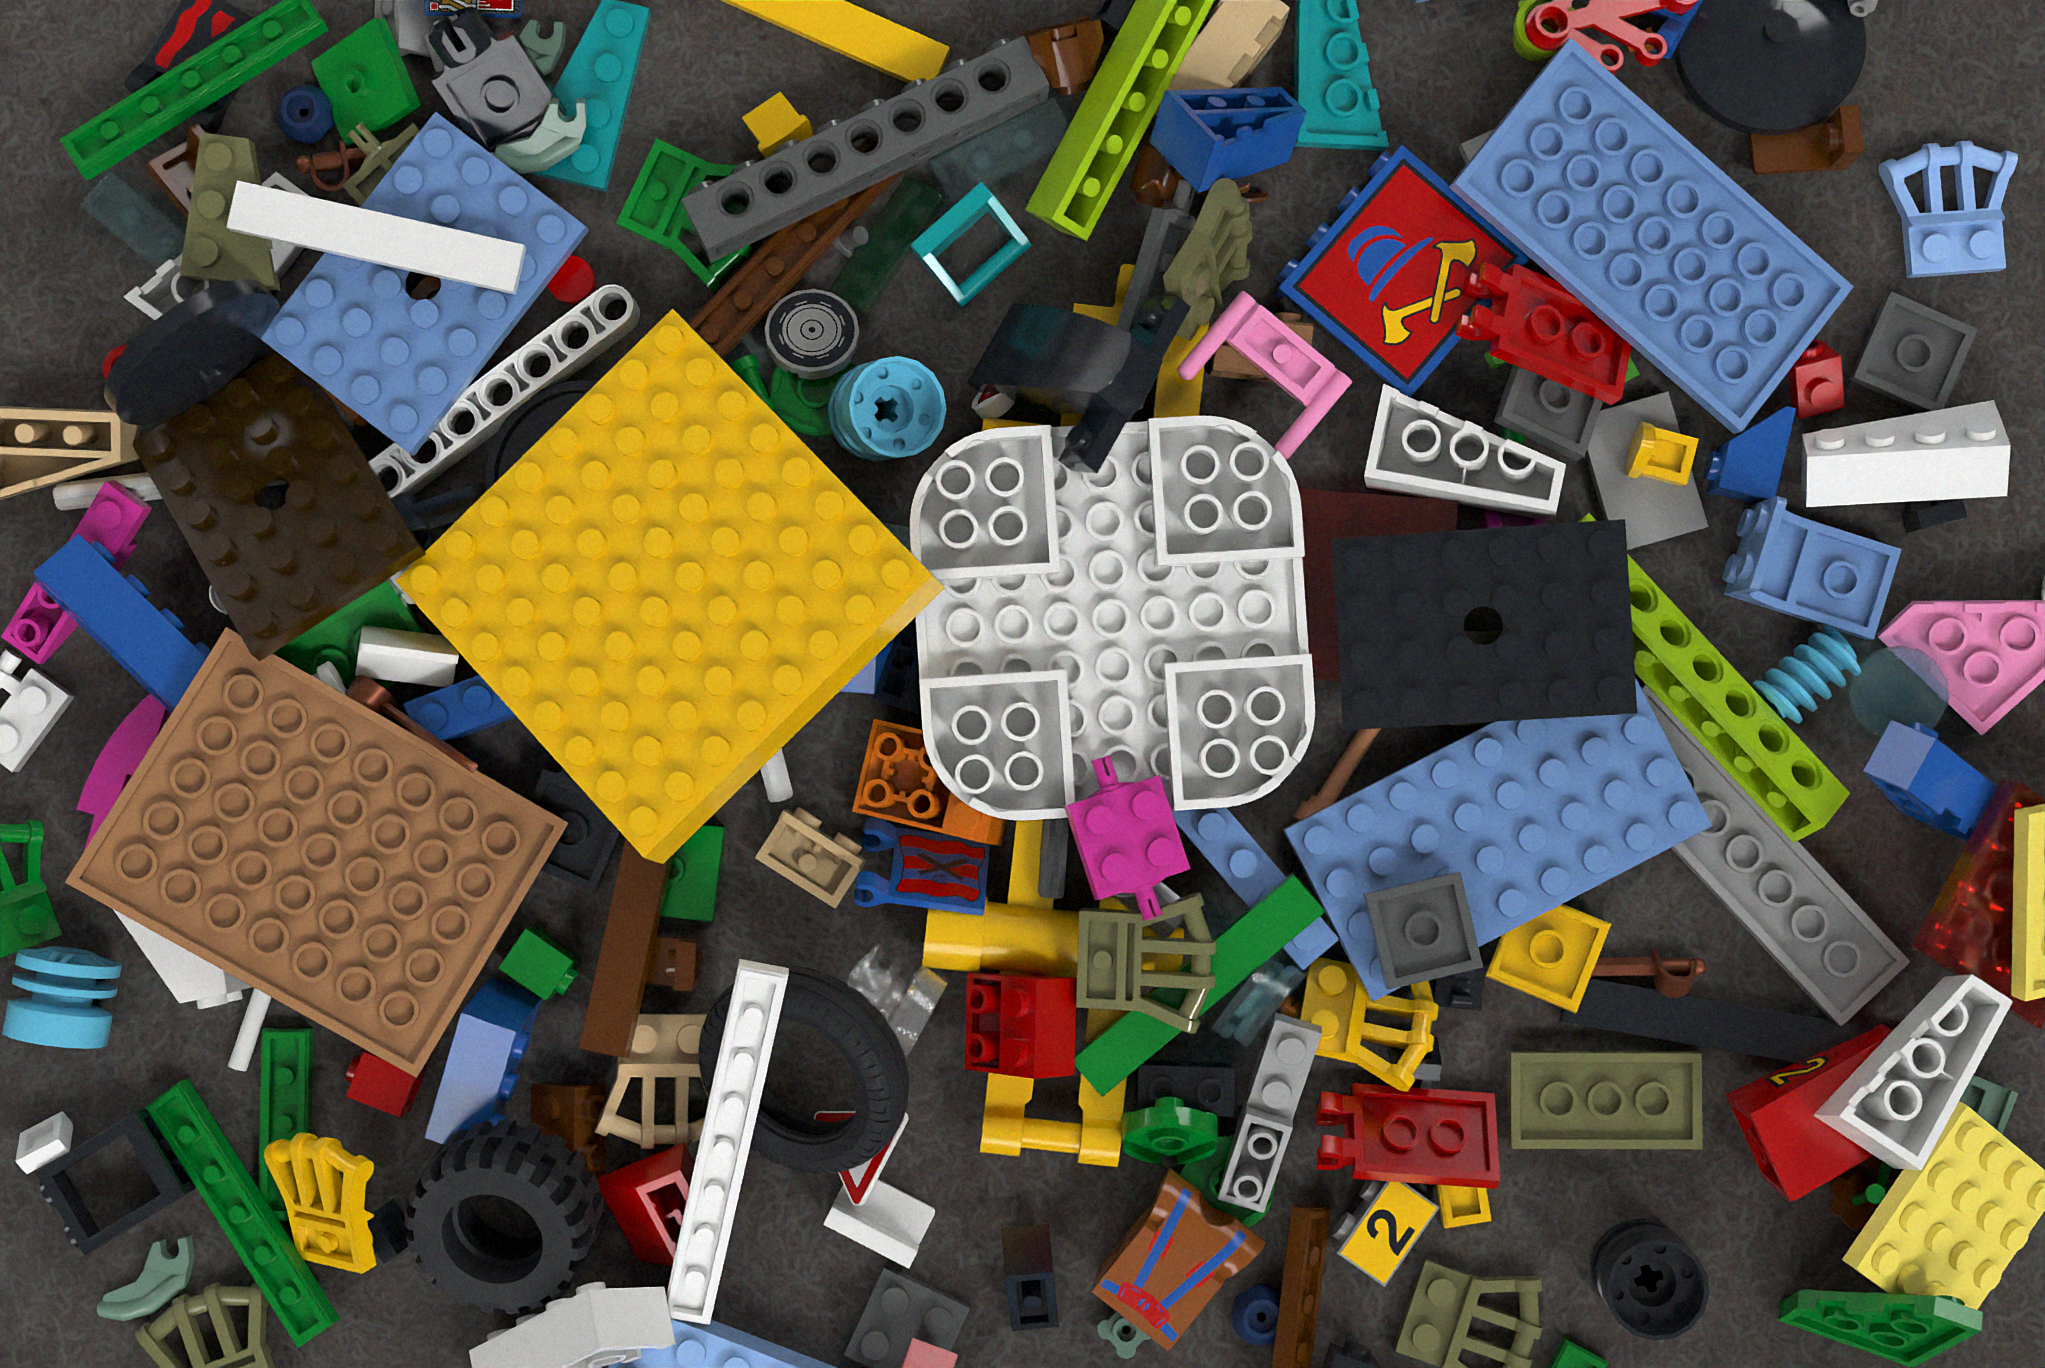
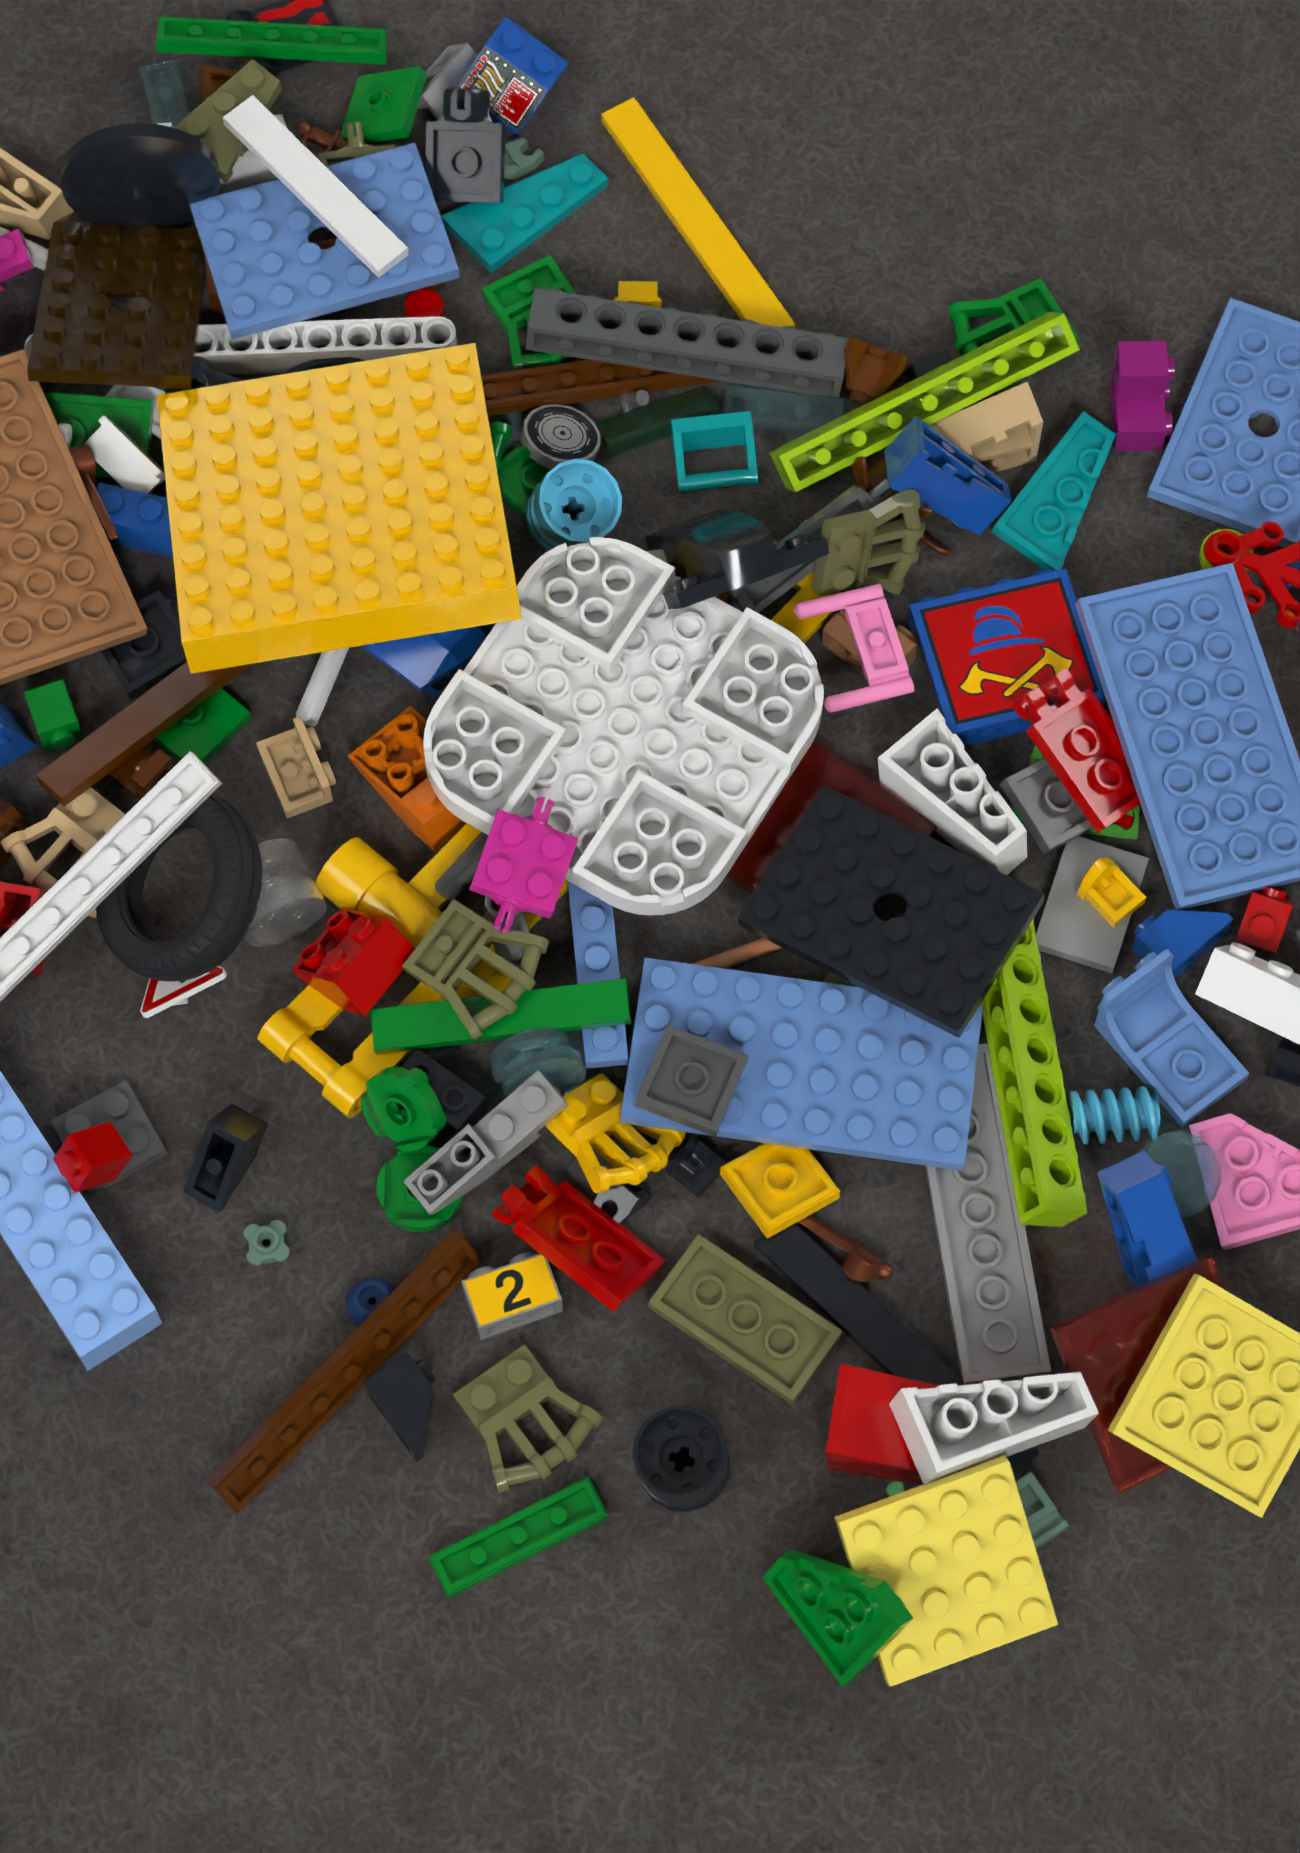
camera: 35 degrees right, 20 degrees down
(308, 128) = (332, 114): dark blue plate -> none
(549, 143) = (477, 212): sand green piece -> none
(886, 1223) = (152, 1047): white panel -> none
(925, 870) = (366, 821): blue flag -> none
(1173, 1261) = (338, 1203): dark orange piece -> none
(1462, 1205) = (585, 1323): yellow tile -> none

